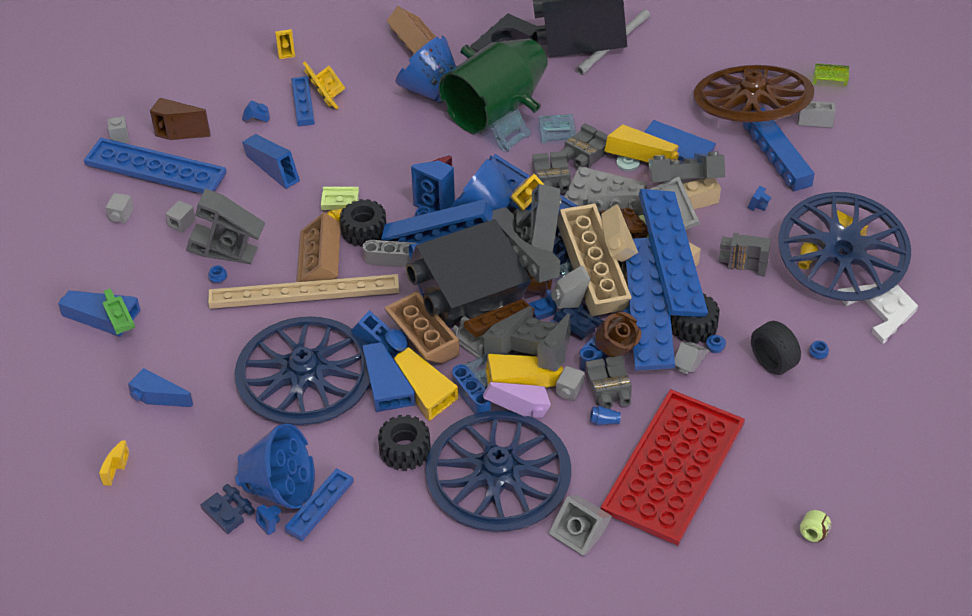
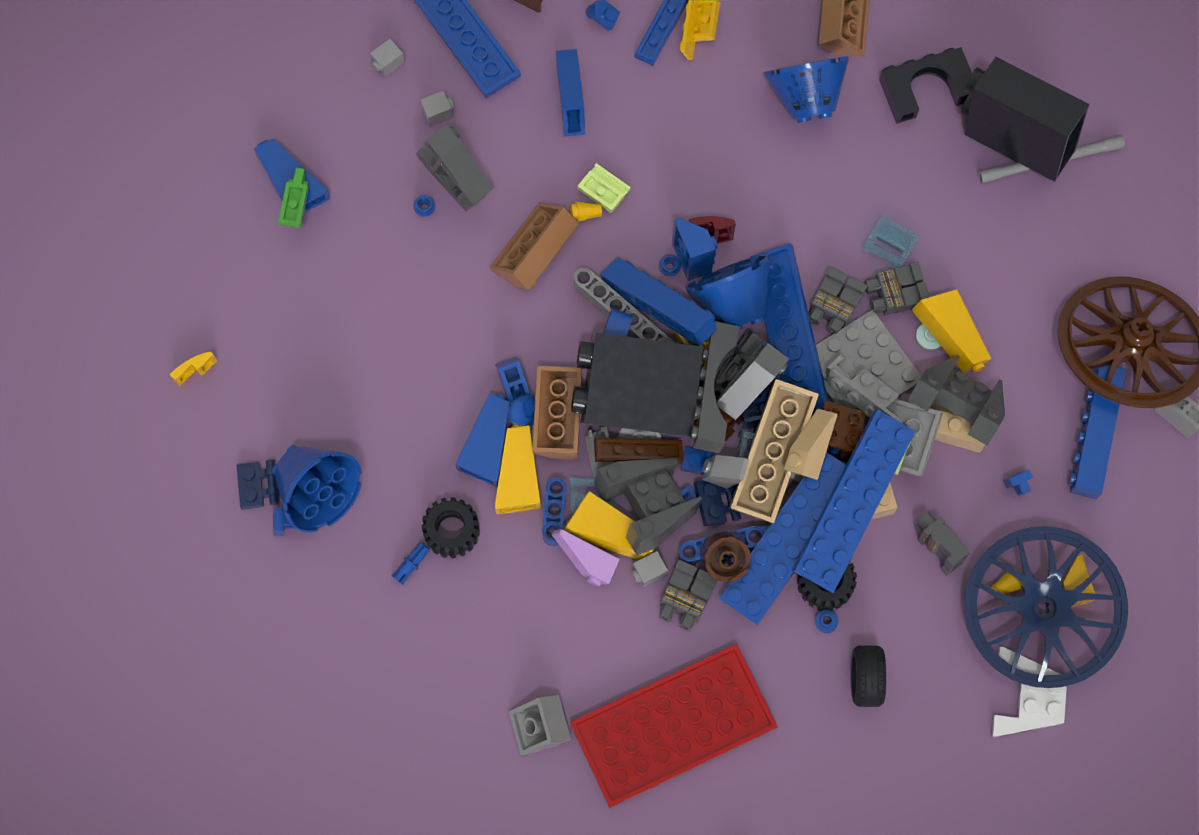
camera: 35 degrees right, 25 degrees up
(158, 391) = (277, 308): blue slope -> none
(302, 369) = (424, 386): dark blue wheel -> none
(303, 291) = (489, 284): tan plate -> none
(319, 504) = (334, 538): blue plate -> none
(362, 221) = (595, 223): black tyre -> none
(392, 485) = (411, 563): none -> blue axle
(493, 83) = (860, 149): dark green piece -> none
(498, 473) = (514, 626): dark blue wheel -> none
(506, 126) = (836, 209): clear light blue plate -> none
(523, 193) = (774, 322): yellow slope -> none
(604, 416) = (653, 627): blue cone -> none
(687, 142) = (1007, 352): blue tile -> none
(689, 357) = (787, 620): light grey slope -> none
(819, 349) = (921, 694): blue plate -> none

